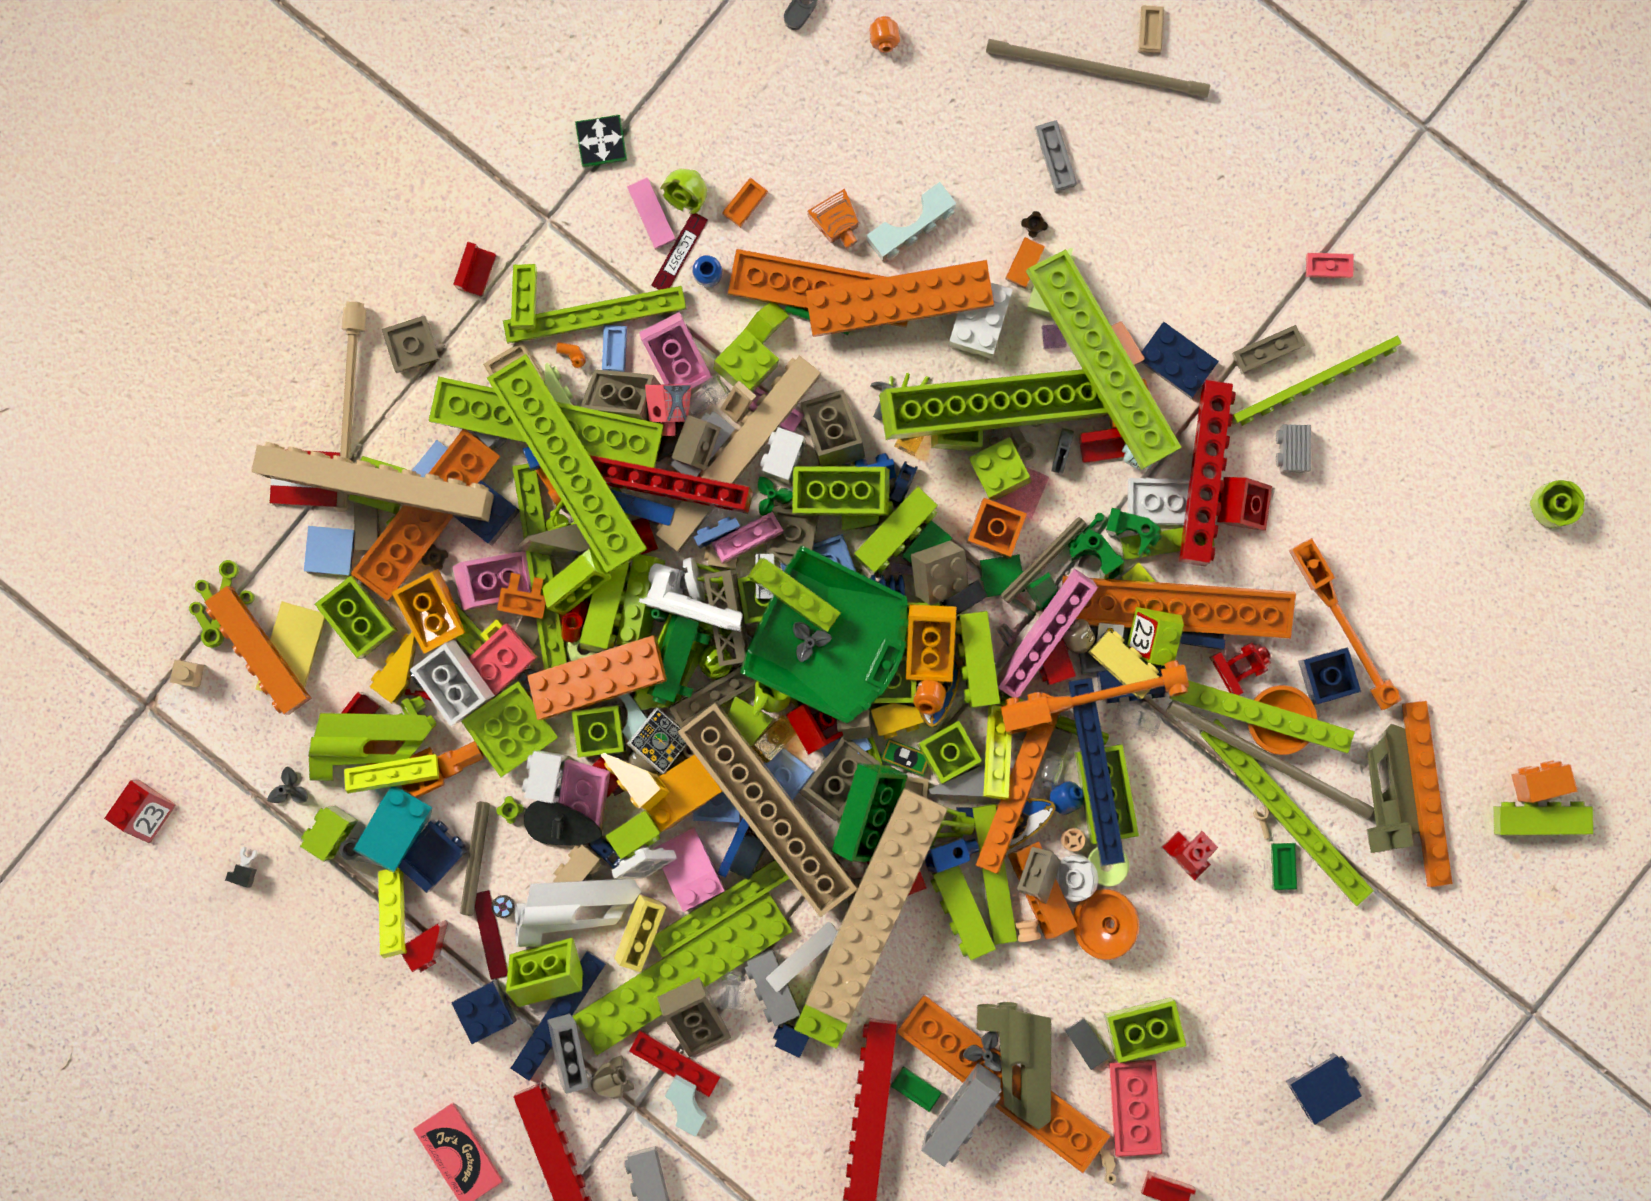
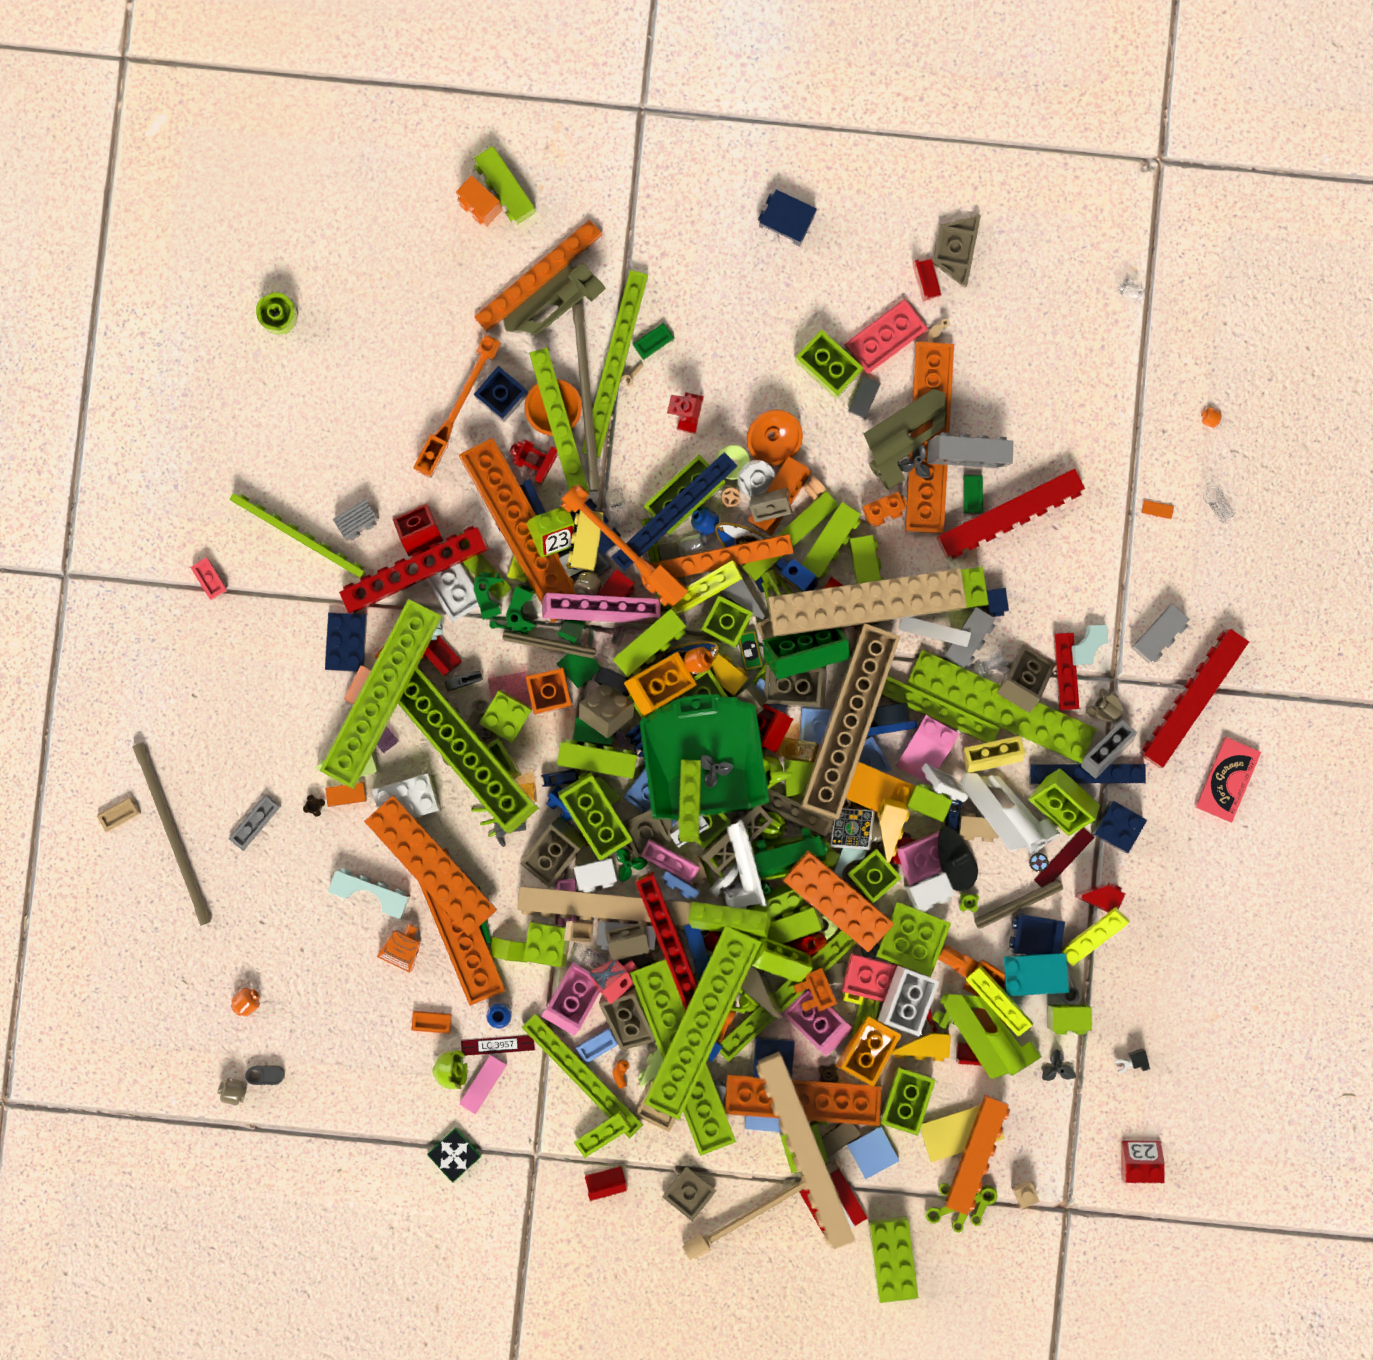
camera: 125 degrees left, 0 degrees up
(212, 501) = (893, 1259): none -> lime brick
(659, 547) = (717, 917): none -> lime brick
(920, 933) = (864, 559): none -> lime brick
(960, 989) = (884, 508): none -> orange brick
(1268, 349) = (297, 583): dark tan plate -> none

